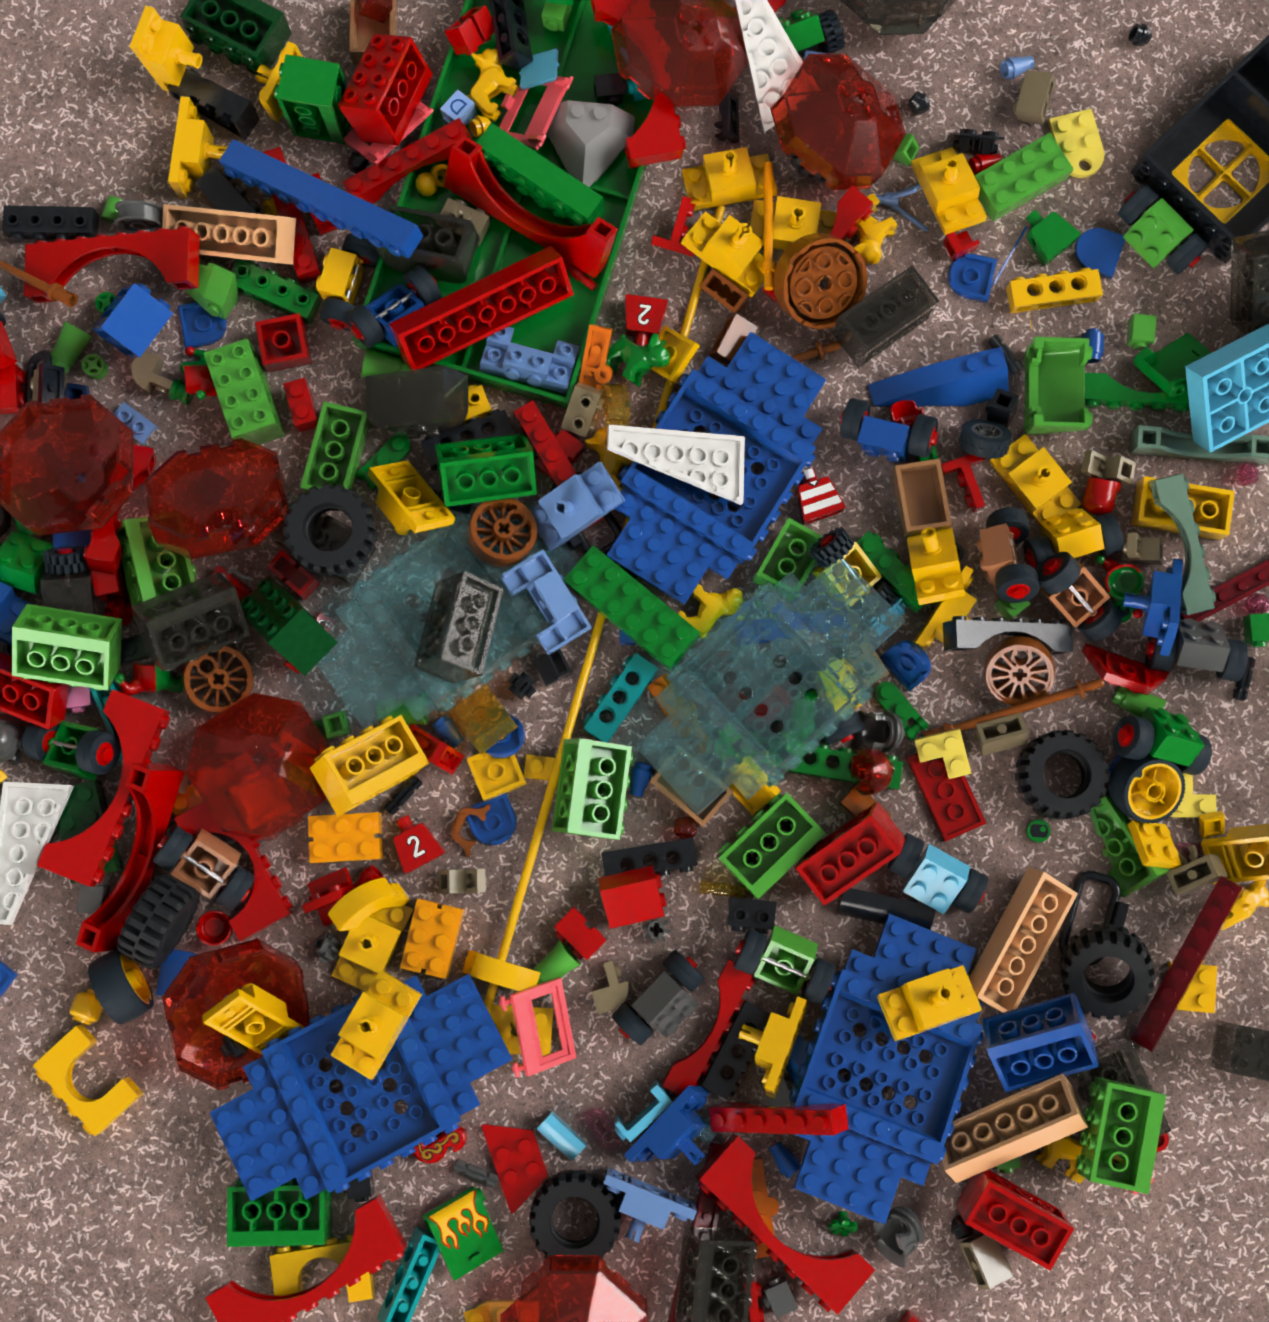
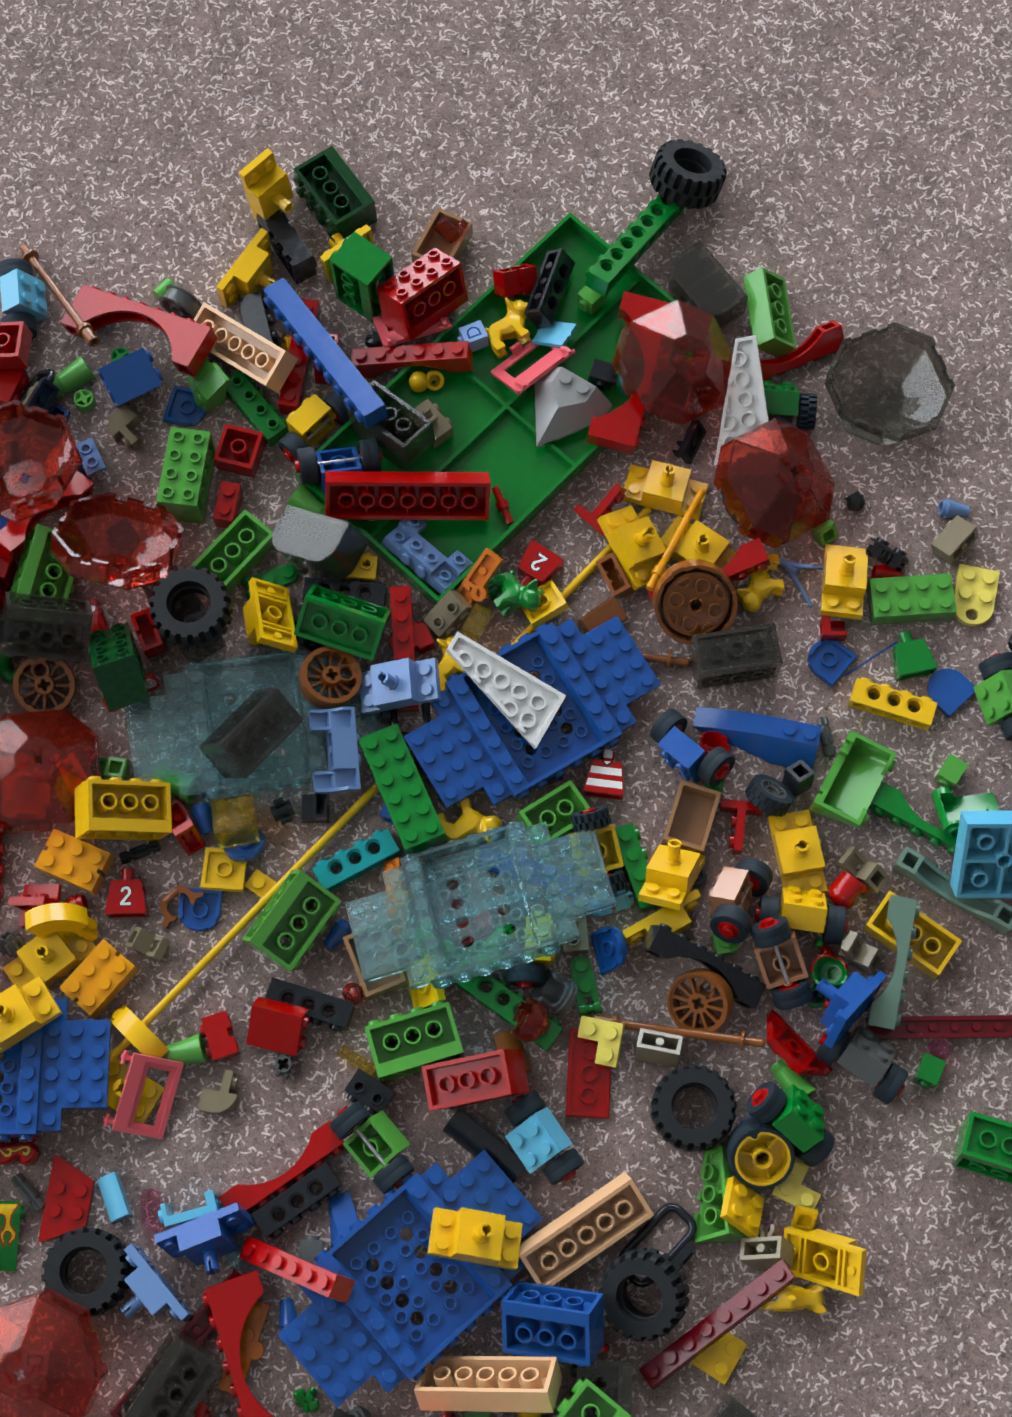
camera: 30 degrees right, 10 degrees down
(49, 222) = (111, 277): black brick -> none
(178, 392) = (141, 451): green wheel -> none
(197, 375) = (157, 443): red piece -> none
(472, 179) = (514, 484): red arch -> none
(479, 125) = (484, 356): yellow plate -> none
(540, 178) = (507, 417): green brick -> none
(663, 1003) = (256, 1126): brick -> none
(776, 1043) = (331, 1209): yellow brick -> none
(1038, 830) = (650, 1147): tile -> none
(1096, 340) = (905, 763): blue brick -> none
(1241, 692) = (896, 1107): black axle -> none
(1247, 474) = (984, 935): clear pink plate -> none

